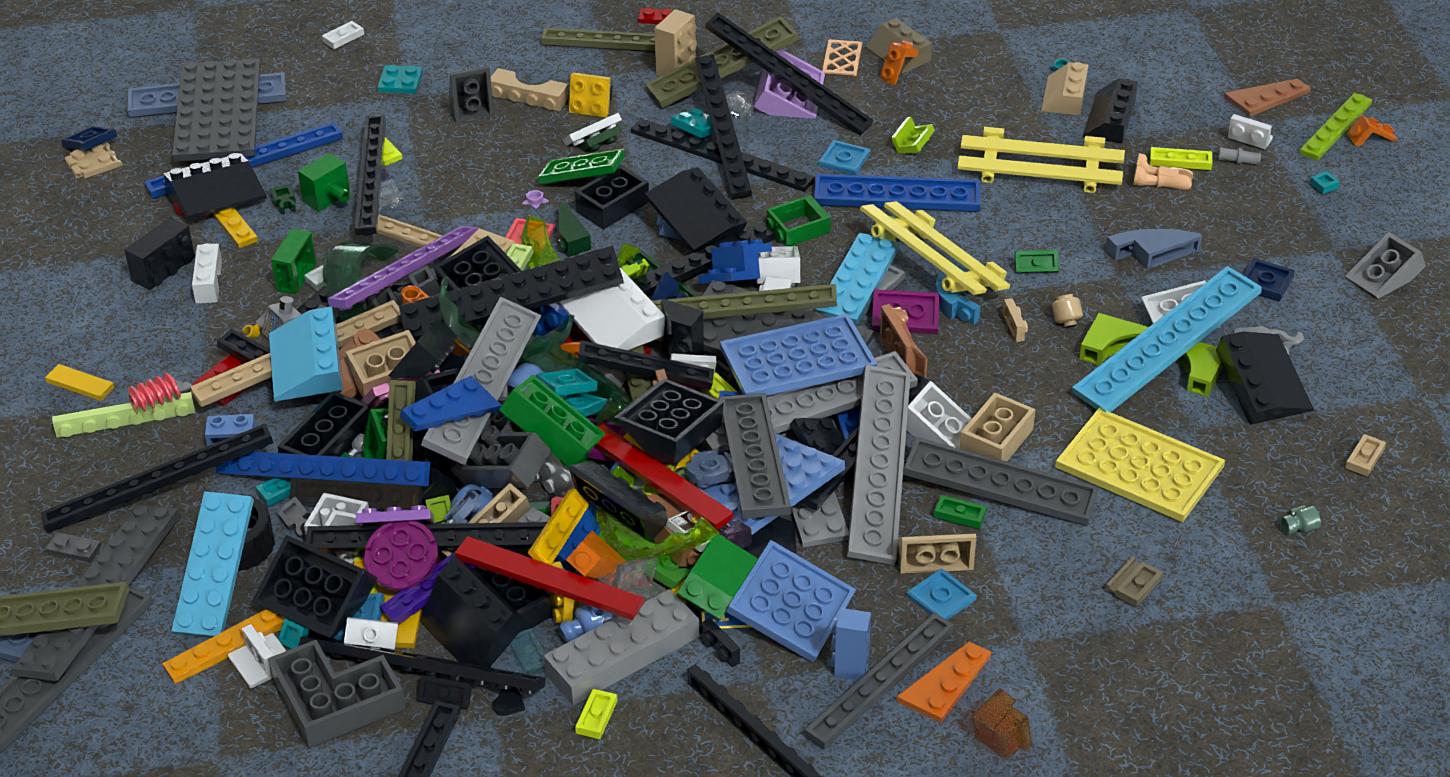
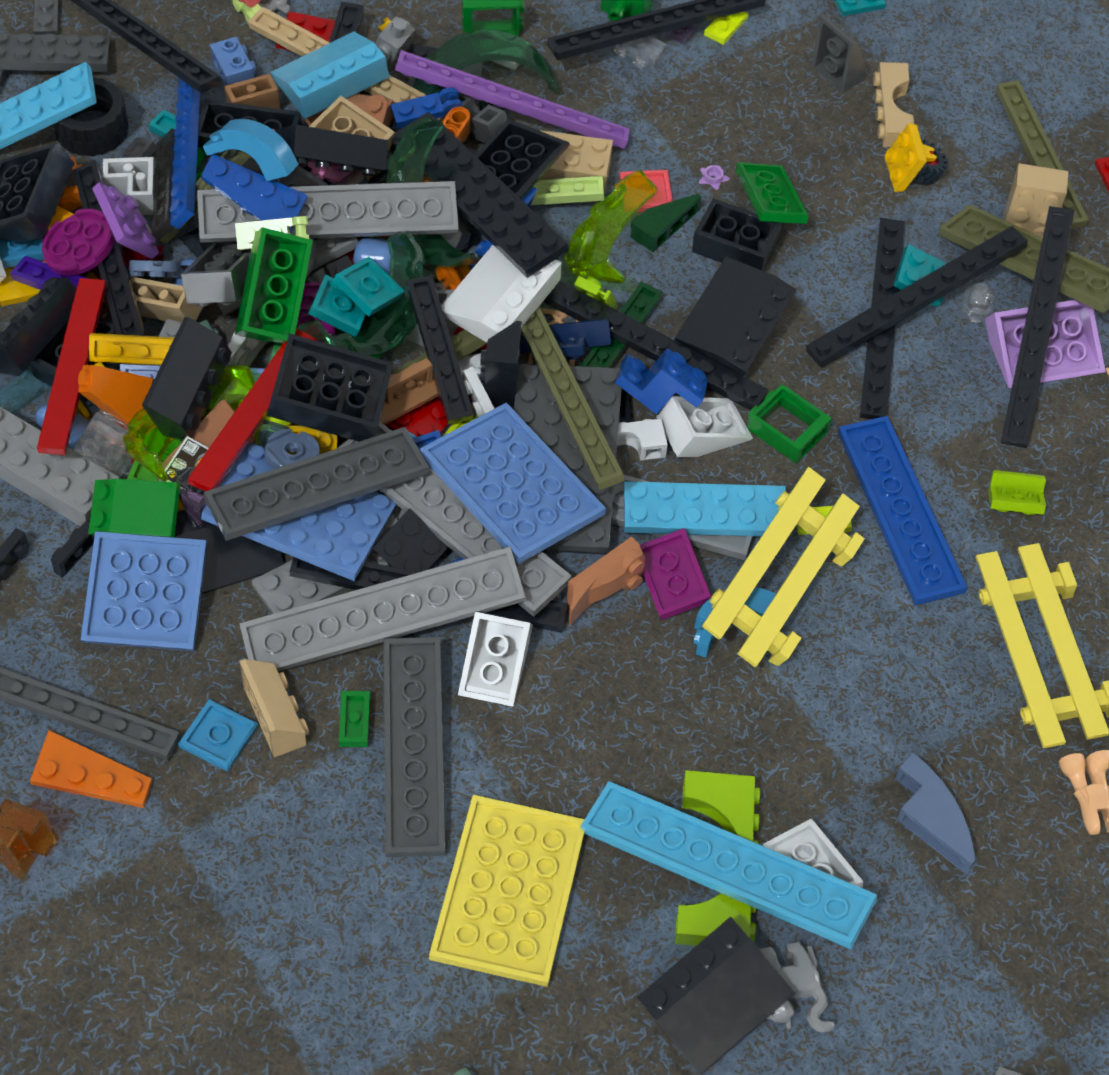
camera: 65 degrees right, 15 degrees up
(284, 420) = (256, 92): none -> medium nougat brick
(386, 312) = (412, 109): none -> blue hinge
(405, 232) = (599, 85): tan tile -> none
(411, 373) = (259, 142): none -> dark azure arch
(439, 507) = (184, 251): lime plate -> none
(489, 417) = (246, 230): none -> plate
(578, 137) = (854, 185): white plate -> none
(594, 142) = (834, 193): dark green plate -> none
(844, 157) = (944, 437): dark azure tile -> none
(851, 643) = (77, 658): medium blue brick -> none
(998, 428) = (494, 719): tan brick -> none
(1014, 320) = (704, 695): tan plate -> none
(1036, 261) = (838, 688): green plate -> none
(1067, 310) = (752, 742): tan head -> none
(1134, 581) = (302, 926): dark tan plate -> none
(1271, 277) = (937, 966): dark blue plate -> none

